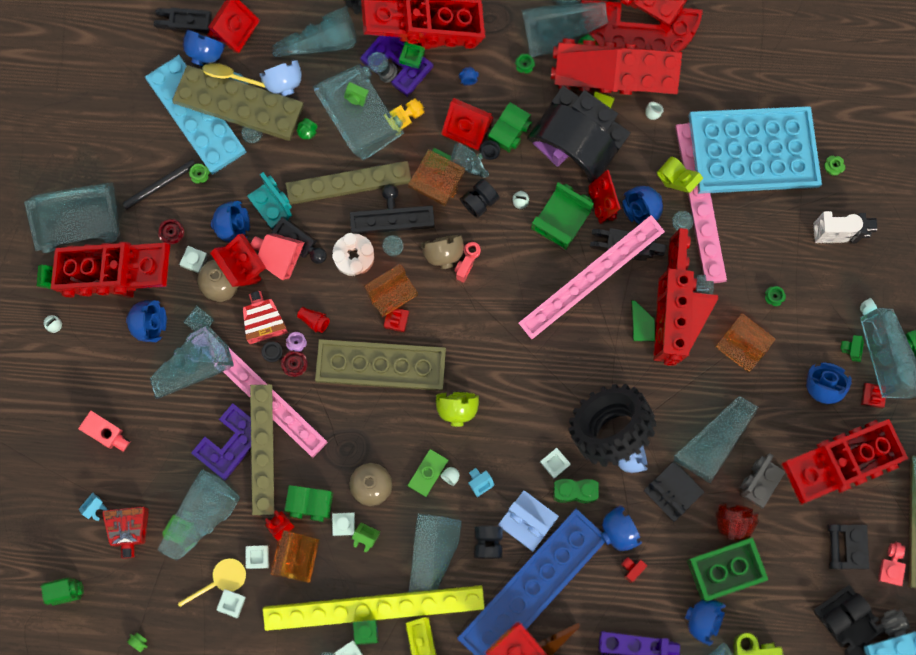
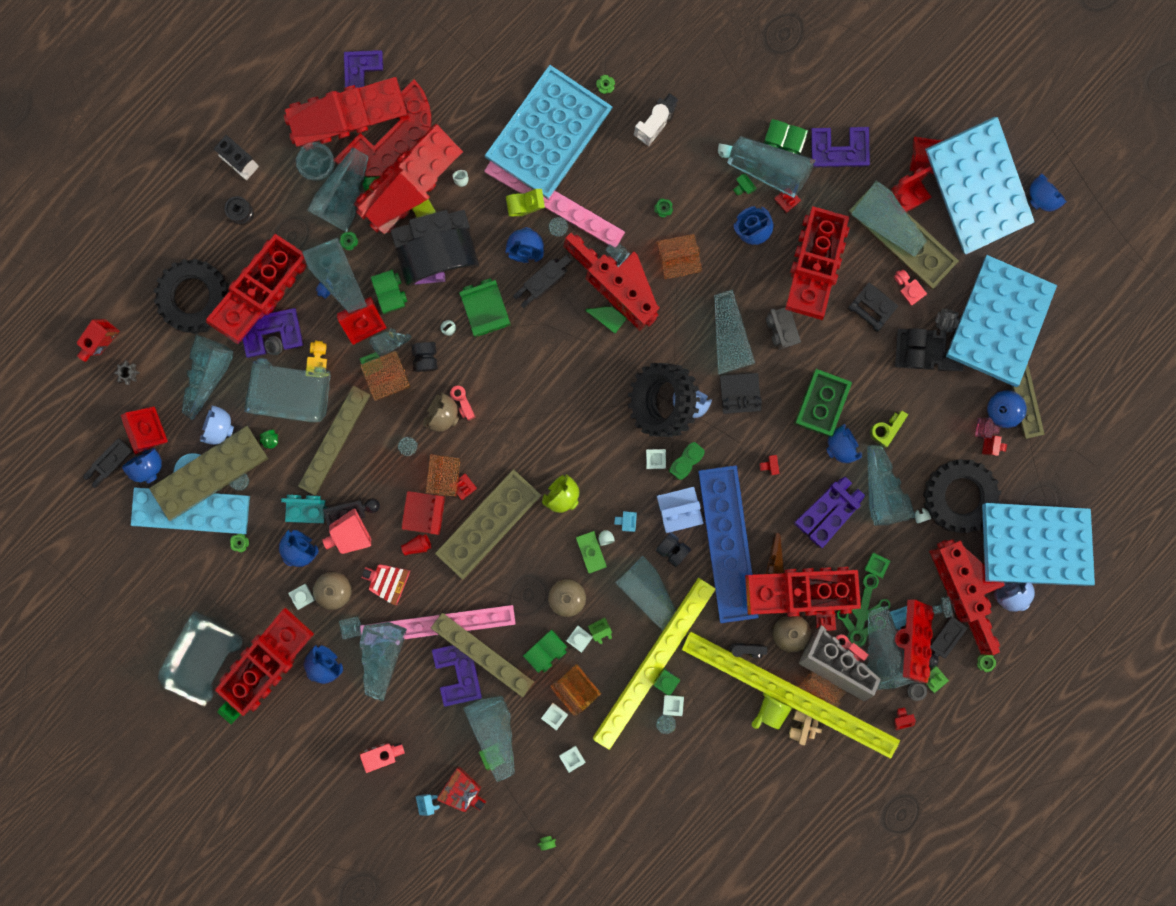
camera: 50 degrees left, 10 degrees up
(55, 326) = (271, 733): light aqua hinge -> none
(62, 591) = (471, 869): green brick -> none
(158, 185) = (223, 578): black bar -> none
(171, 225) = (263, 601): dark red plate -> none
(223, 71) = (175, 465): light yellow piece -> none
(227, 575) = (550, 746): light yellow piece -> none
(239, 262) = (333, 566): red bracket -> none
(272, 351) = (416, 593): black plate -> none
(278, 525) = (545, 683): red tile -> none
(288, 360) = (436, 590): dark red plate -> none
(296, 337) = (420, 567): lavender plate -> none
(346, 303) = (423, 512): none -> red bracket
(356, 94) = (278, 386): bright green plate -> none
(357, 265) = (396, 469): white plate -> none
(377, 62) = (261, 347): clear light blue plate -> none
(391, 218) = (387, 431): black plate -> none
(412, 55) = (277, 318): green plate -> none
(489, 69) = (334, 272): none -> clear light blue wedge
(490, 149) = (393, 319): black plate -> none
(591, 277) = (548, 326): bright pink plate -> none
(604, 198) = (497, 269): red hinge -> none
(620, 530) = (738, 454): blue cylinder -> none
(736, 521) = (796, 369): clear red cone -> none

